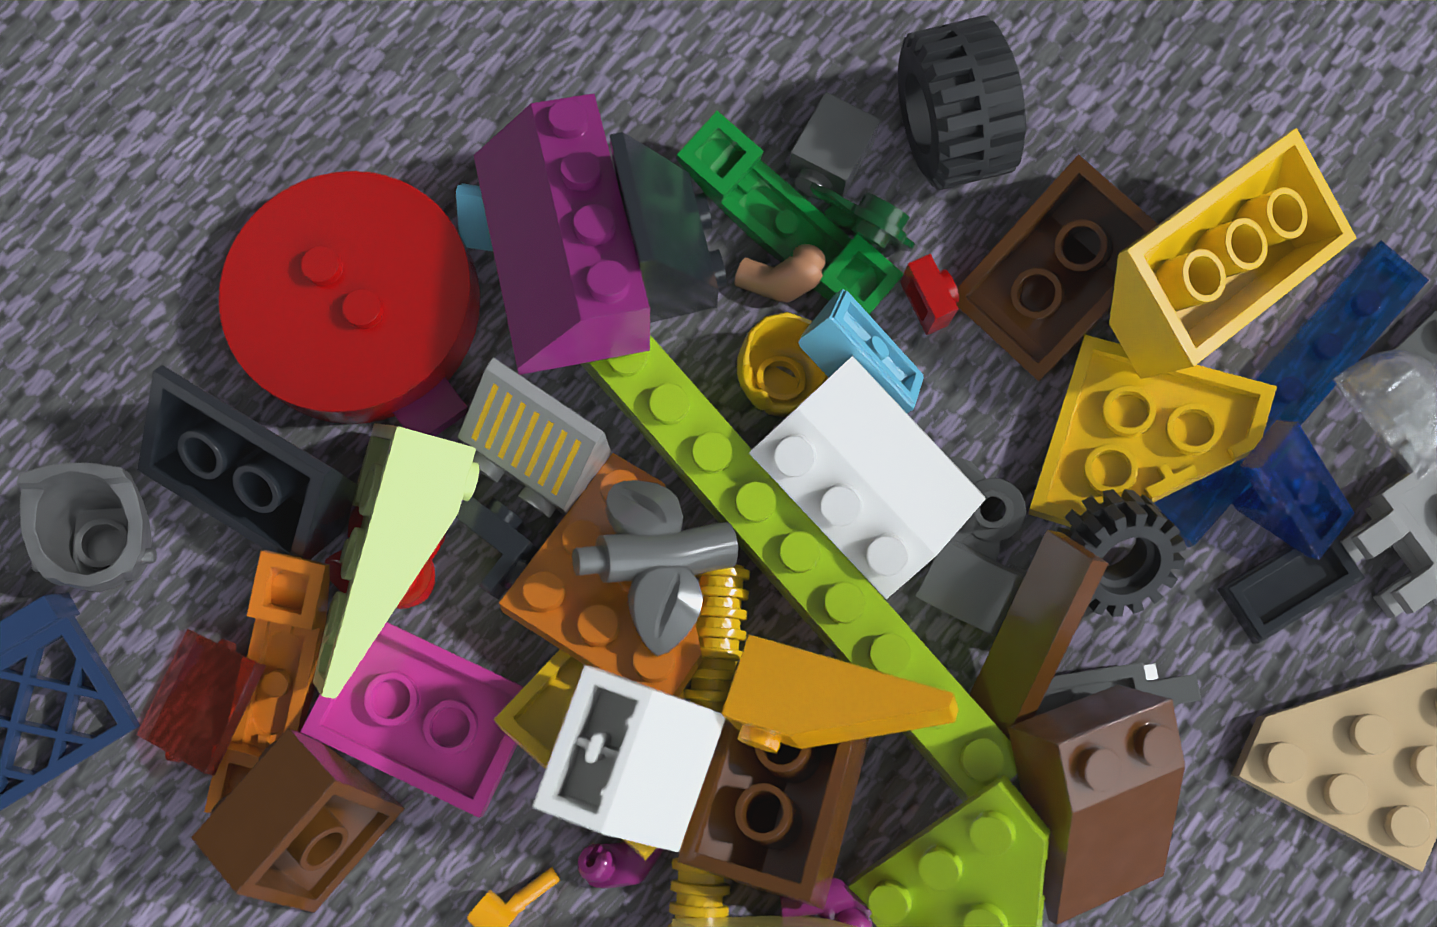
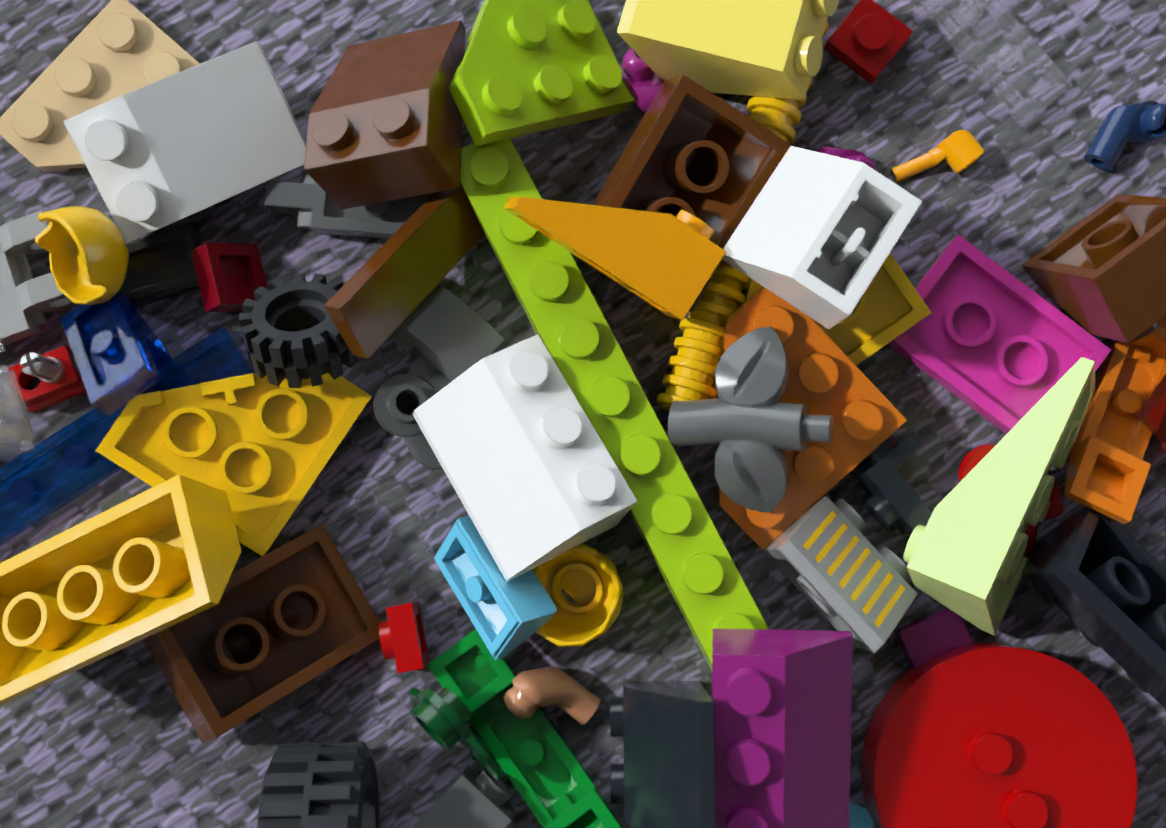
camera: 165 degrees left, 5 degrees up
(1205, 594) = (228, 274): none -> dark red plate
(1295, 716) = (189, 140): none -> white slope
(1350, 451) = (58, 375): none -> red piece
(1356, 572) = (85, 253): none -> yellow hair

